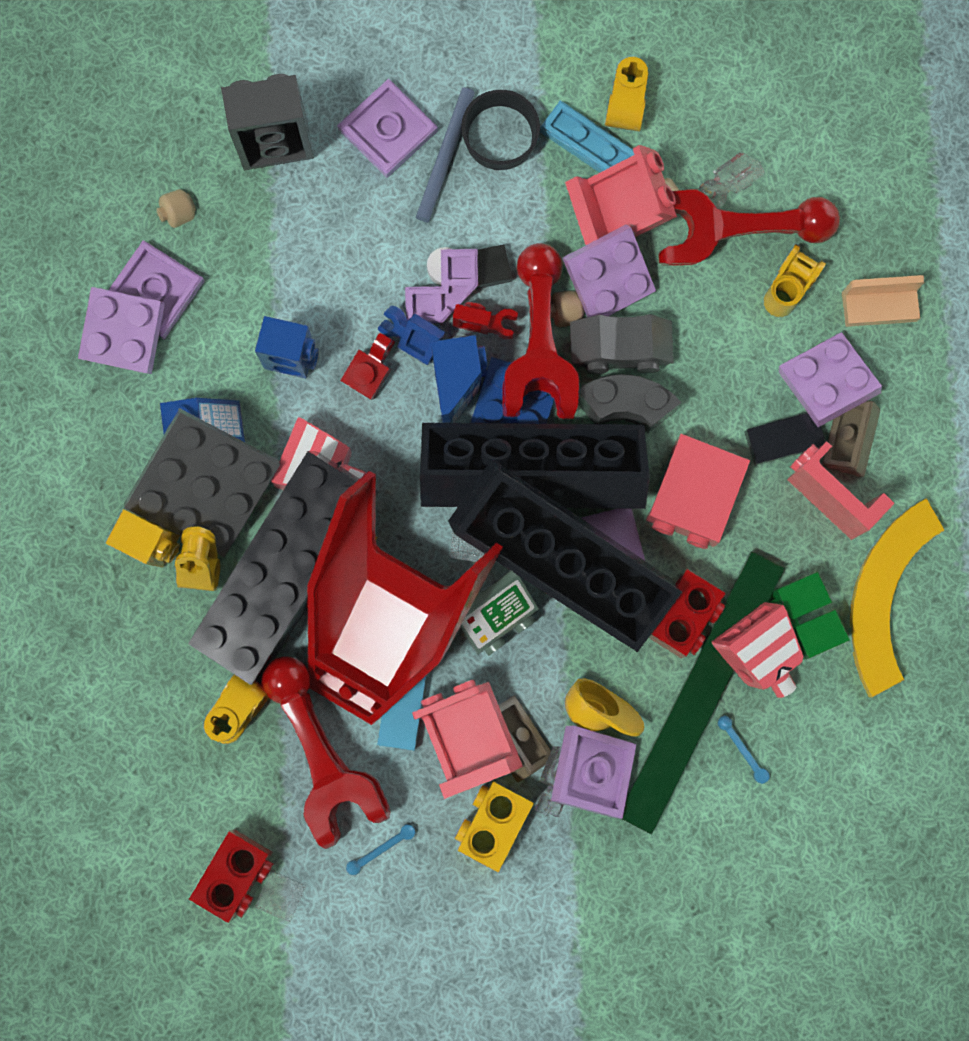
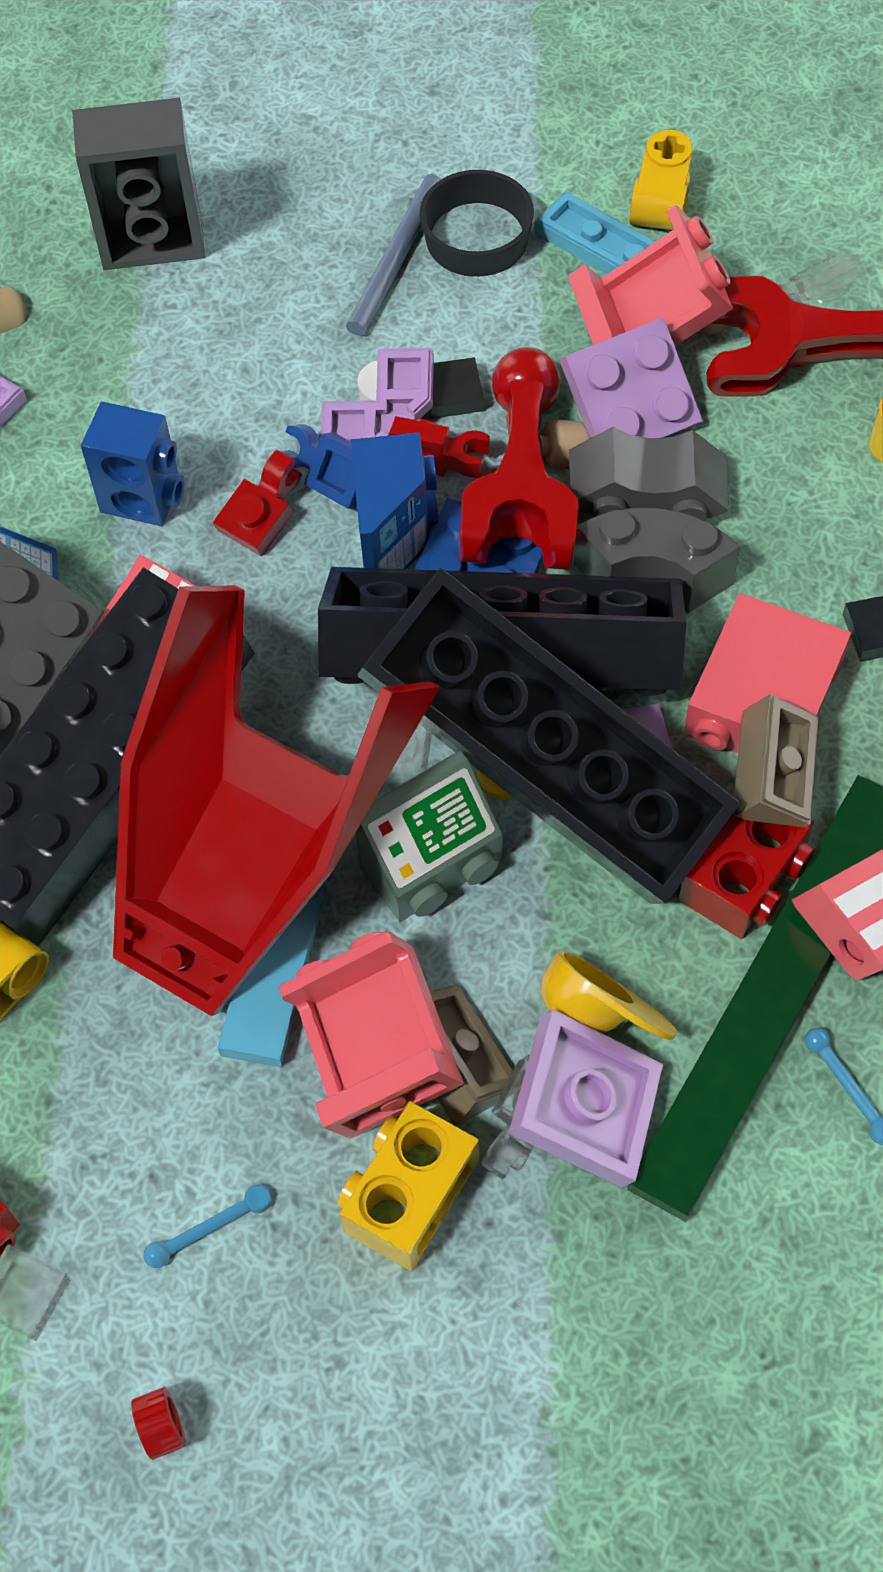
camera: 10 degrees right, 20 degrees down
(287, 683) = (132, 1100): red piece -> none
(365, 965) = (158, 1423): none -> red axle
(387, 128) = (315, 222): lavender tile -> none
(703, 557) = (776, 763): none -> dark tan slope

